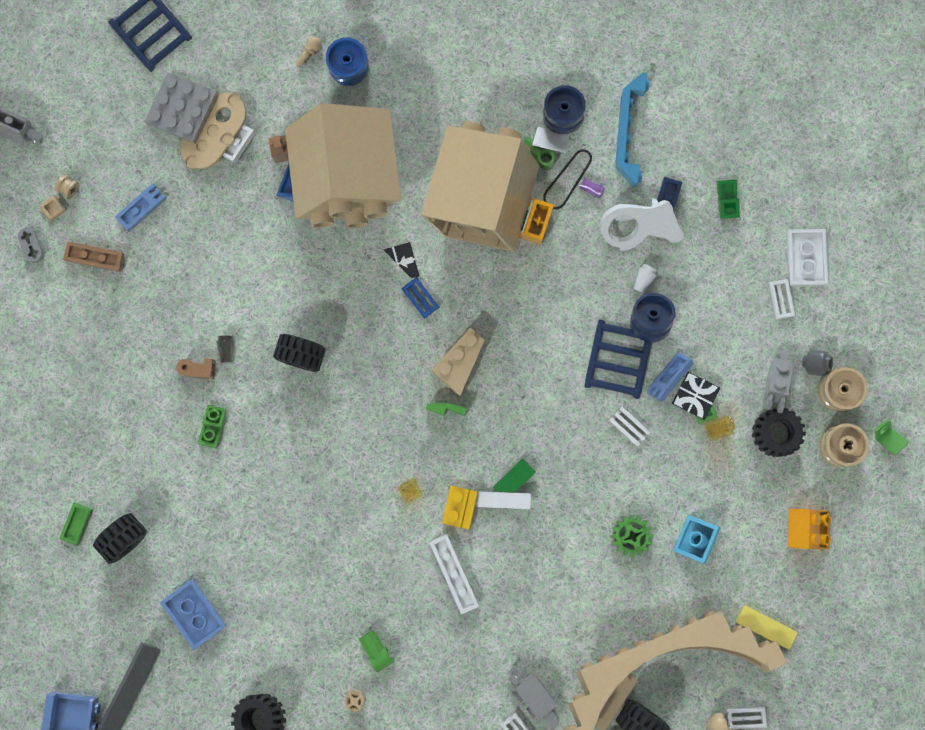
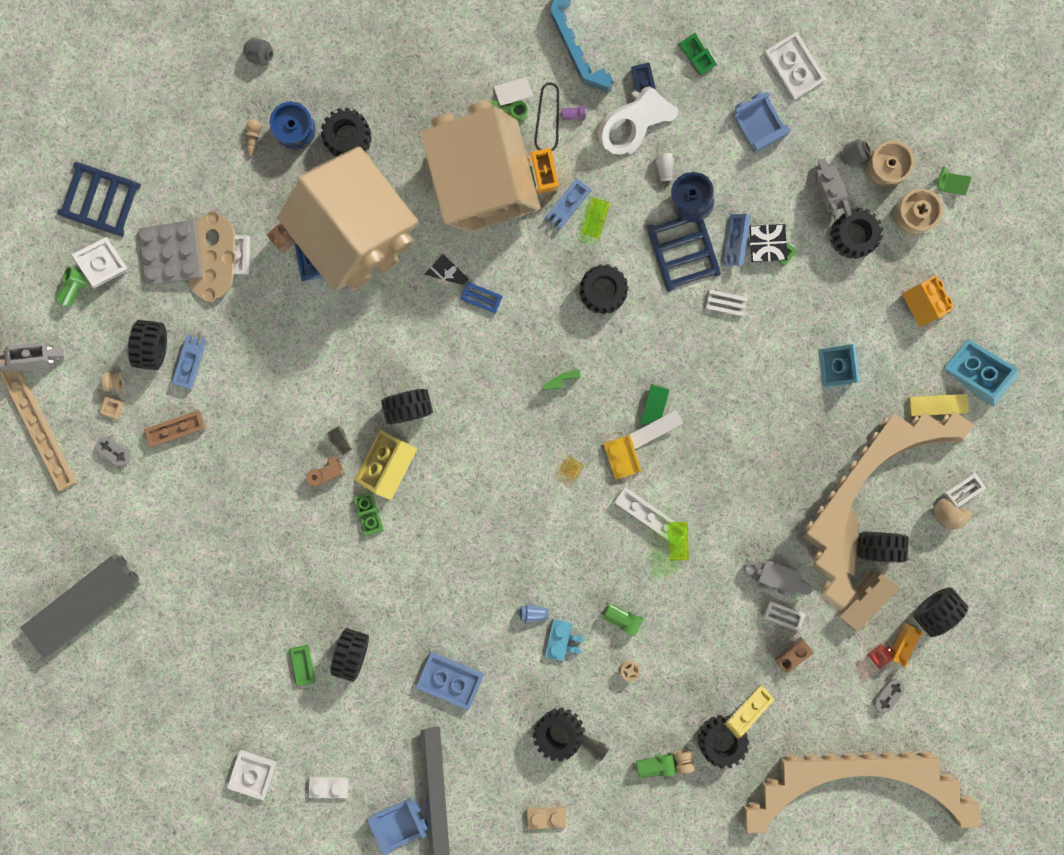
camera: 35 degrees left, 5 degrees up
(32, 645) = (328, 787): none -> white plate
(85, 84) = (73, 281): none -> bright green piece
(113, 172) = (147, 344): none -> black tyre
(117, 81) = (99, 263): none -> white plate
(252, 392) = (385, 464): none -> light yellow slope
(299, 597) = (533, 613): none -> medium blue cone
(309, 636) = (559, 639): none -> medium azure hinge
(388, 79) = (339, 120): none -> black tyre
(459, 361) = (549, 333): tan wedge -> none
(464, 610) = (678, 541): none -> clear neon green plate
(537, 337) = (603, 272): none -> black tyre
(542, 261) = (568, 203): none -> medium blue hinge
(558, 287) = (595, 218): none -> clear neon green plate
(564, 109) = (509, 57): dark blue wheel -> none
(637, 547) = (792, 401): bright green gear -> none
(719, 428) = (804, 259): clear yellow brick -> none
(749, 287) = (759, 122): none -> medium blue panel
(774, 300) = (803, 128): white tile -> none
(821, 621) = (982, 372): none -> medium azure slope

